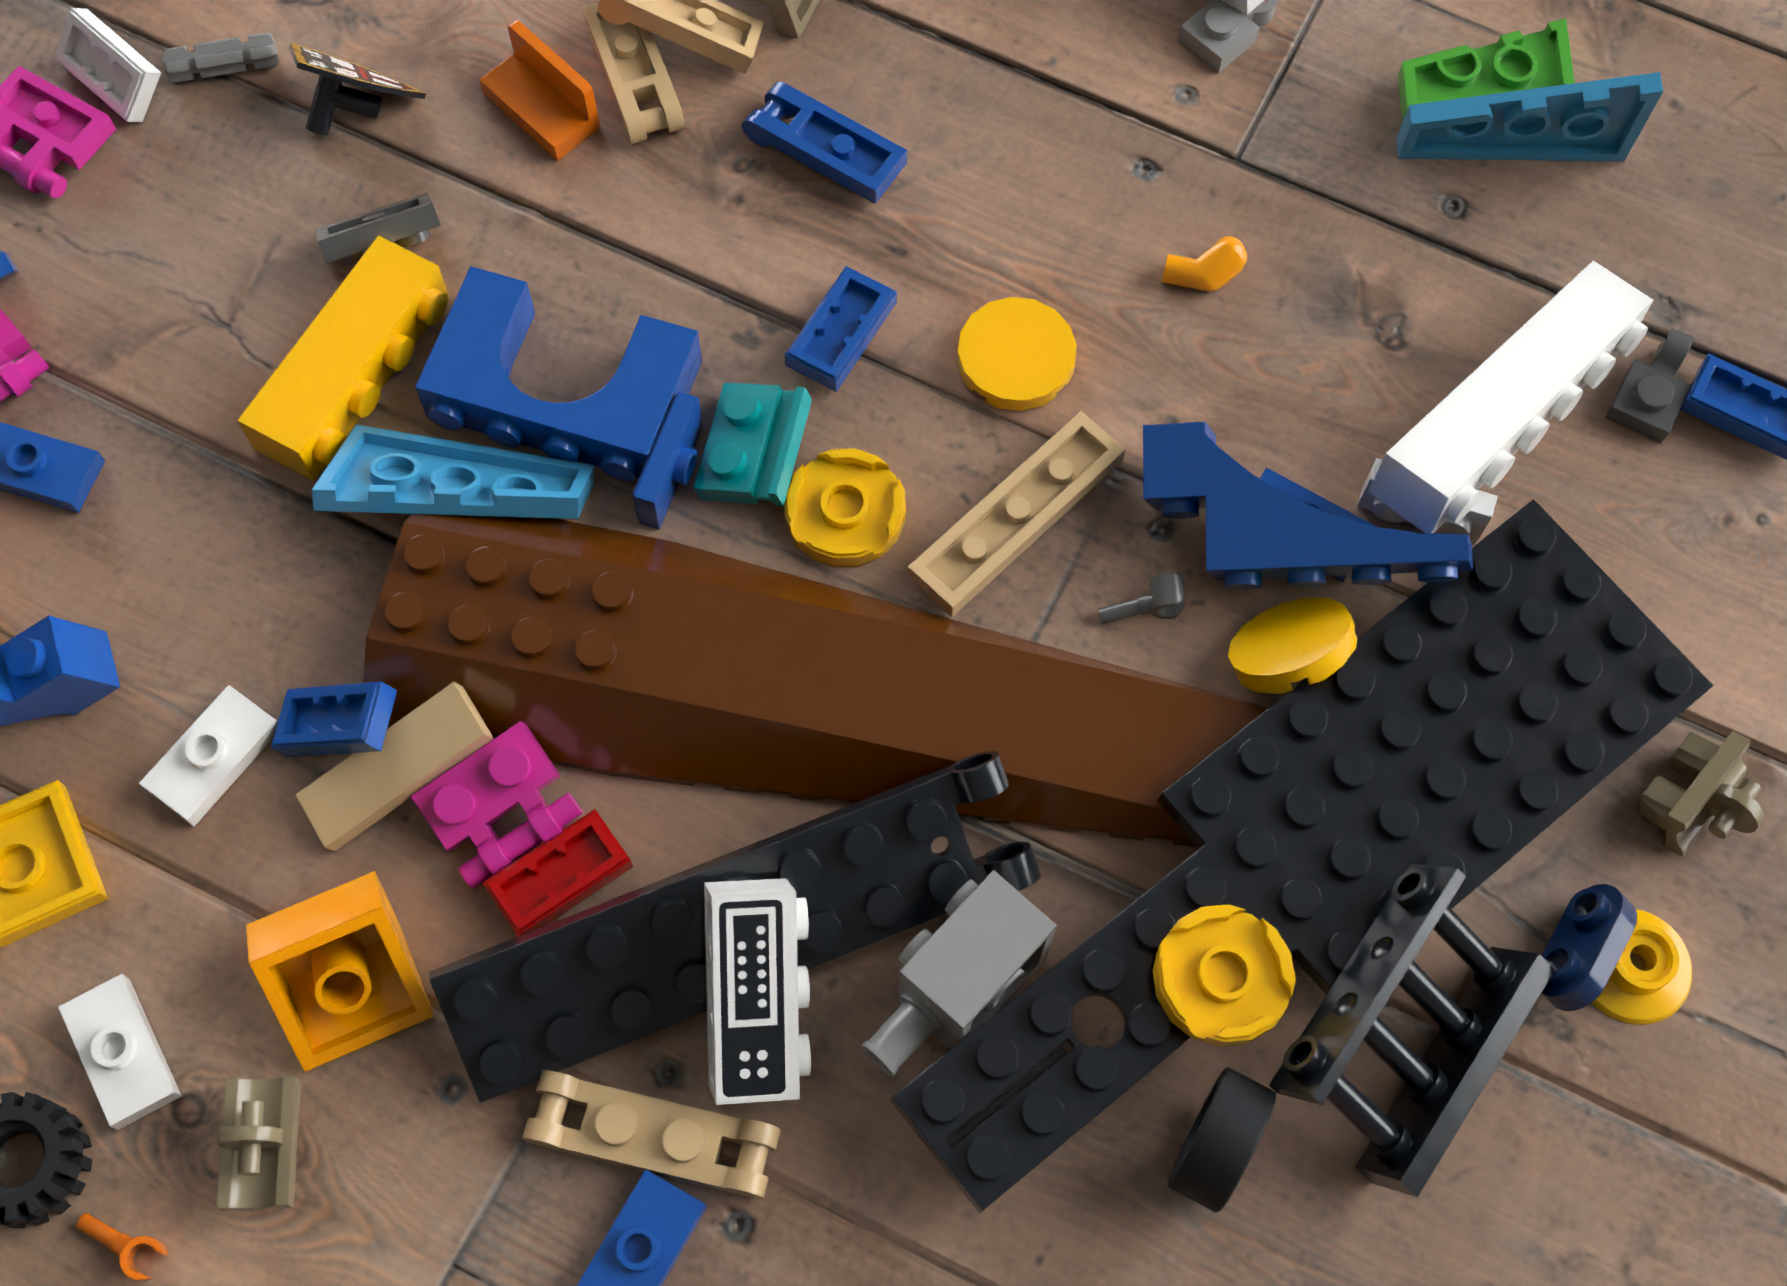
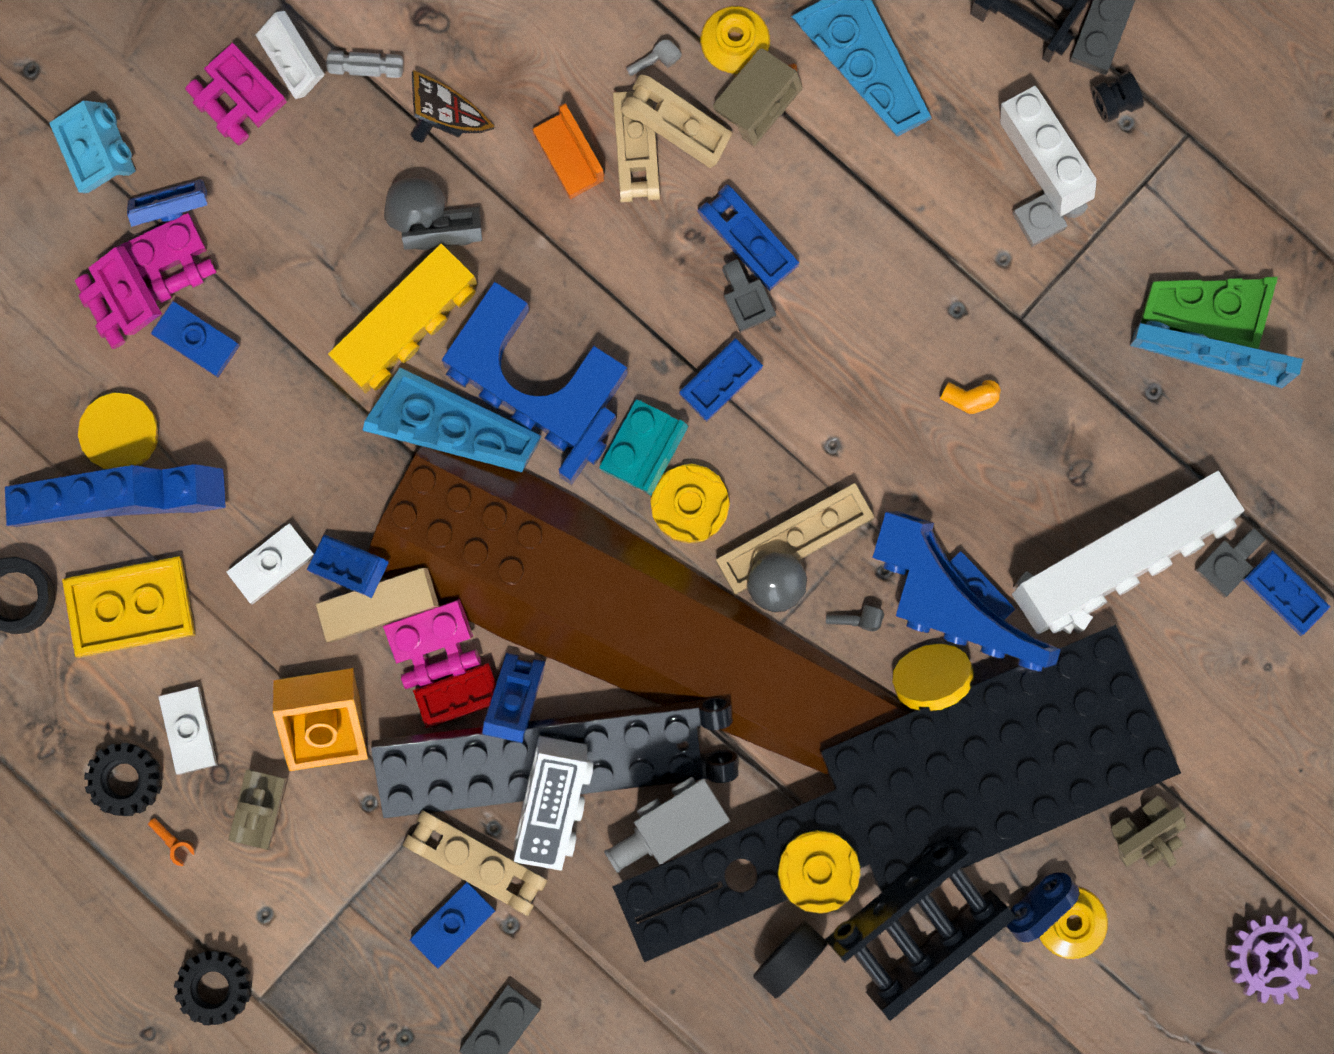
camera: 20 degrees right, 15 degrees up
(325, 191) = (412, 202): none -> dark grey hair
(648, 844) = (514, 698): none -> blue plate
(847, 219) = (747, 302): none -> dark grey plate
(1011, 570) = (777, 582): none -> dark grey hair
(1016, 353) = (829, 426): yellow tile -> none

